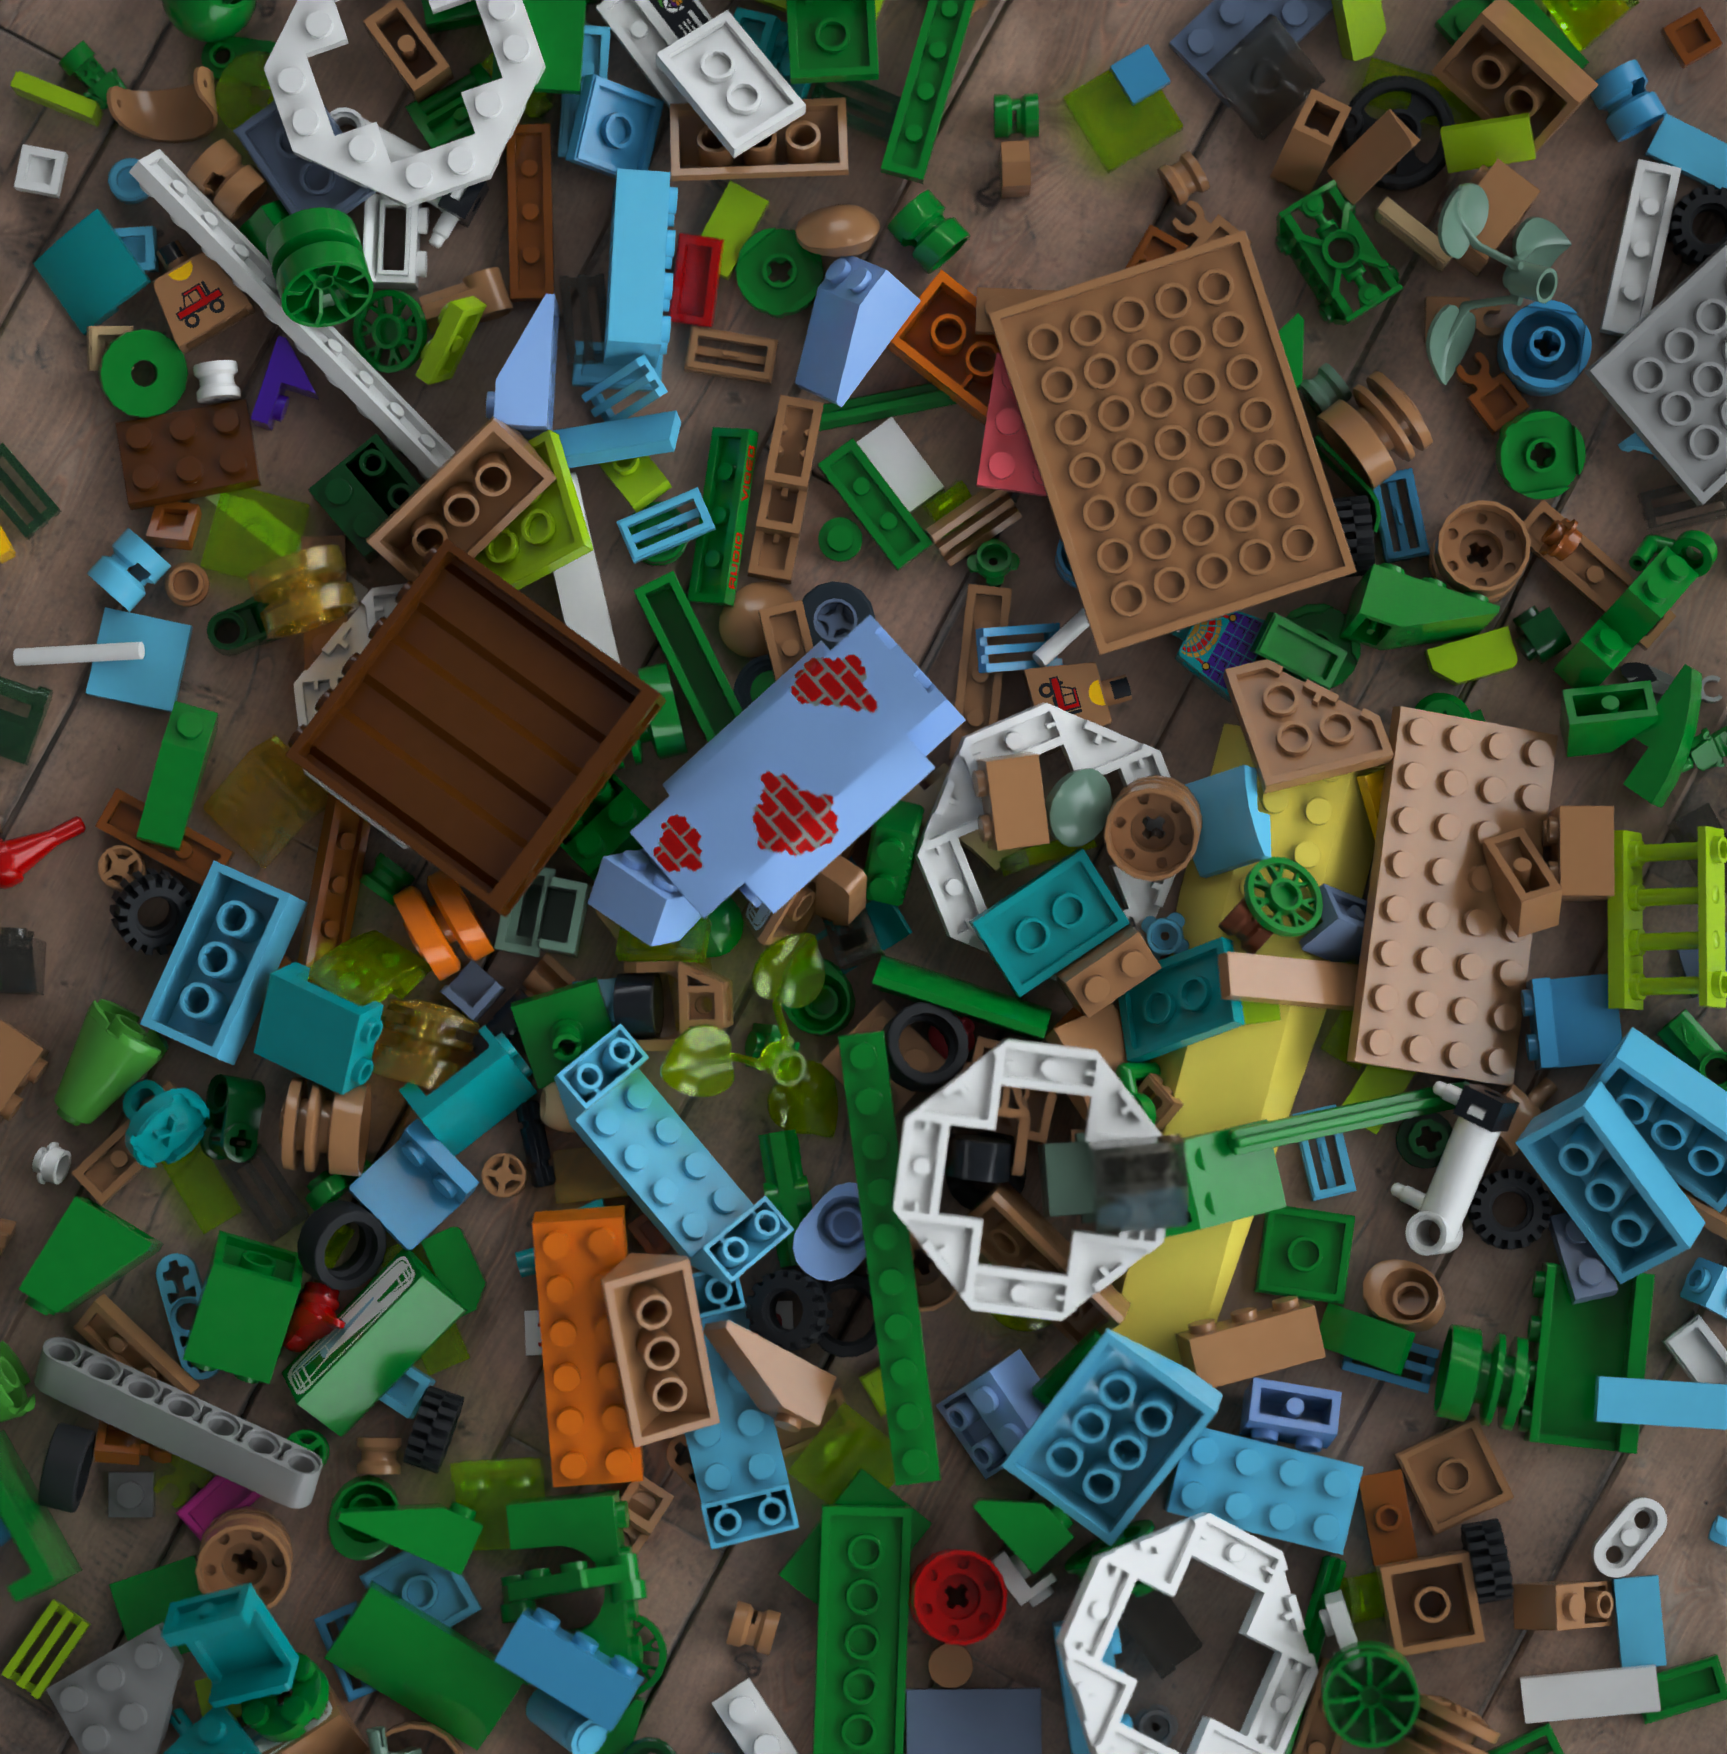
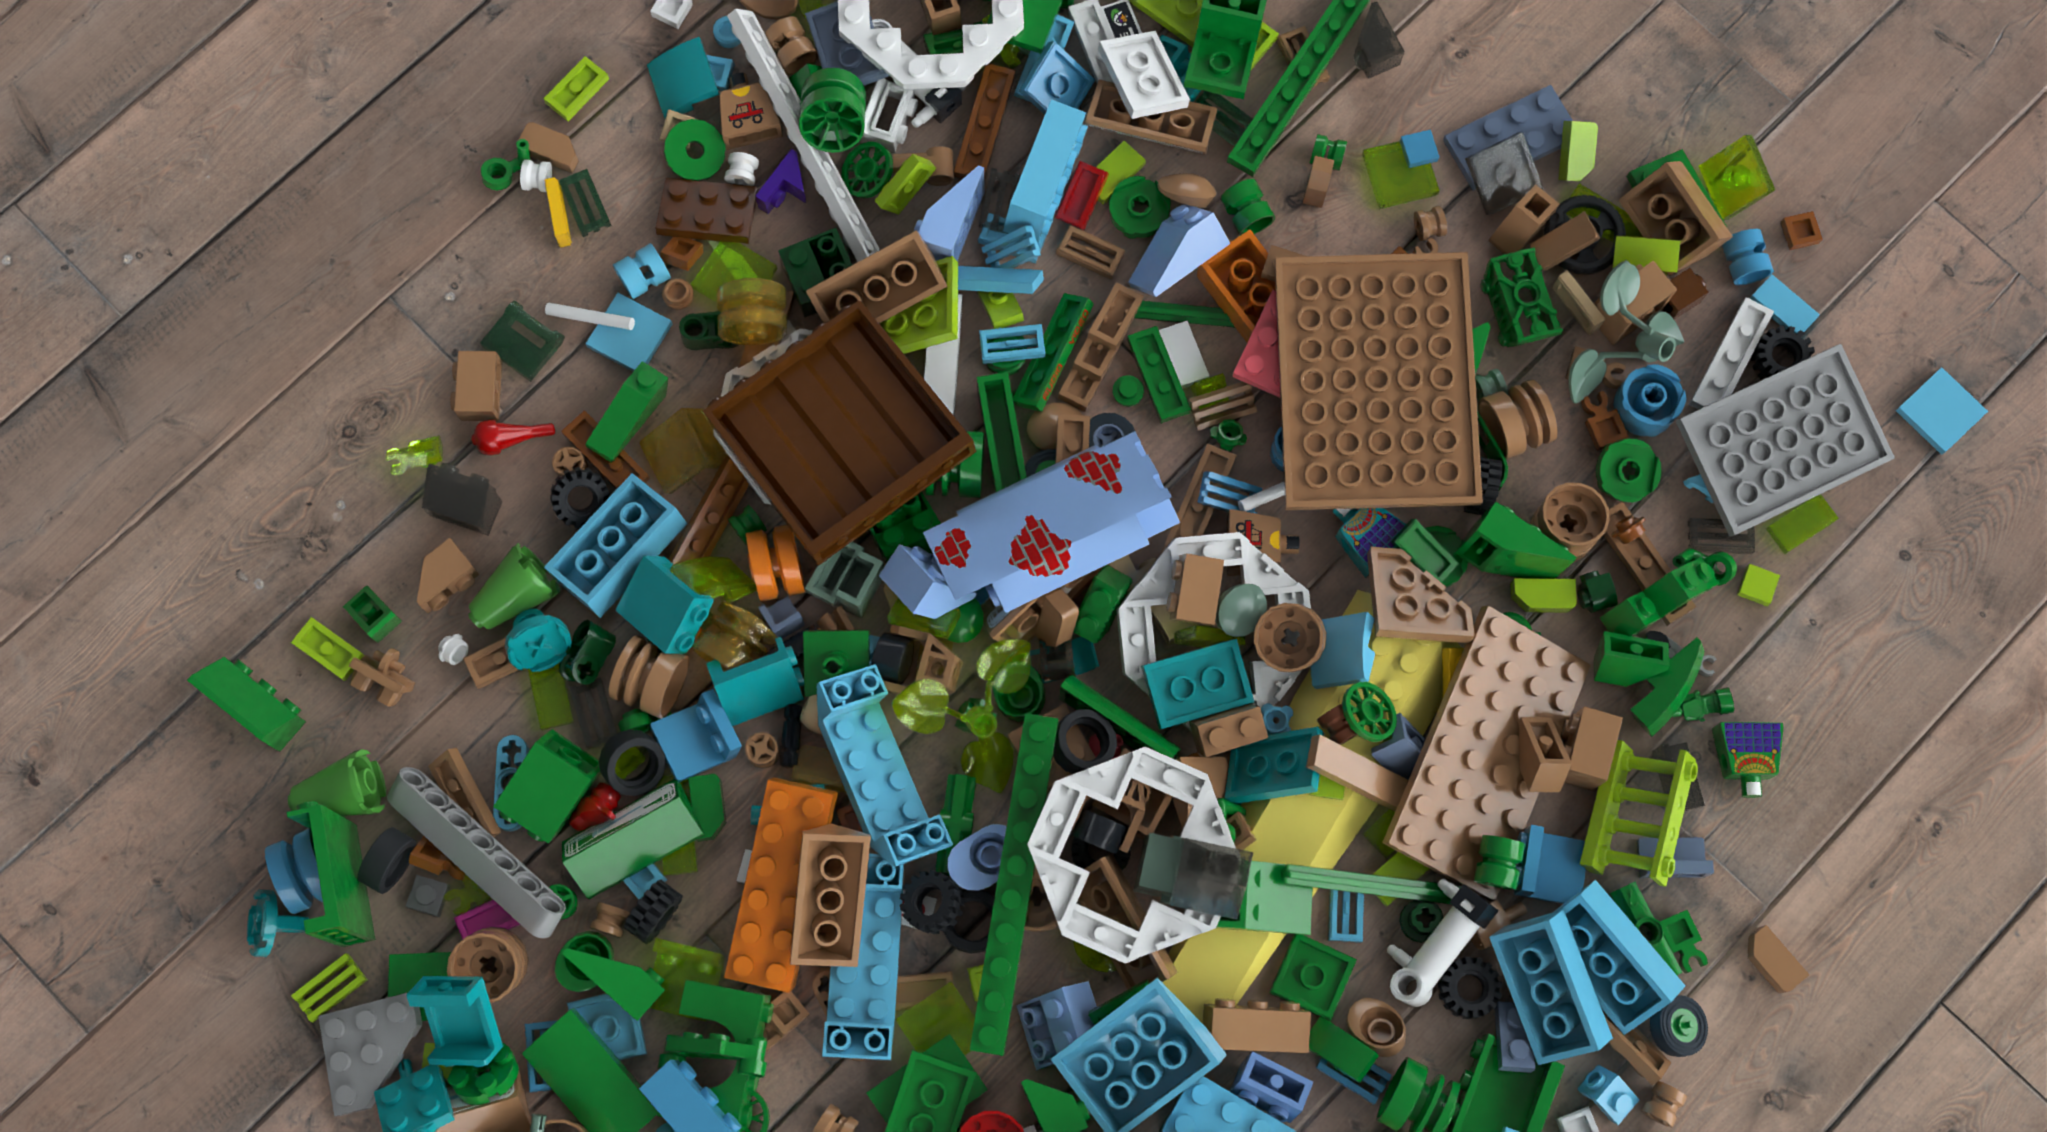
camera: 15 degrees right, 10 degrees down
(84, 1257) = (449, 717): green slope -> none
(772, 1376) = (906, 946): medium nougat slope -> none
(1405, 552) = (1527, 513): dark azure tile -> none
(1503, 1041) = (1499, 862): none -> green wheel
(1555, 175) = (1689, 293): none -> reddish brown brick

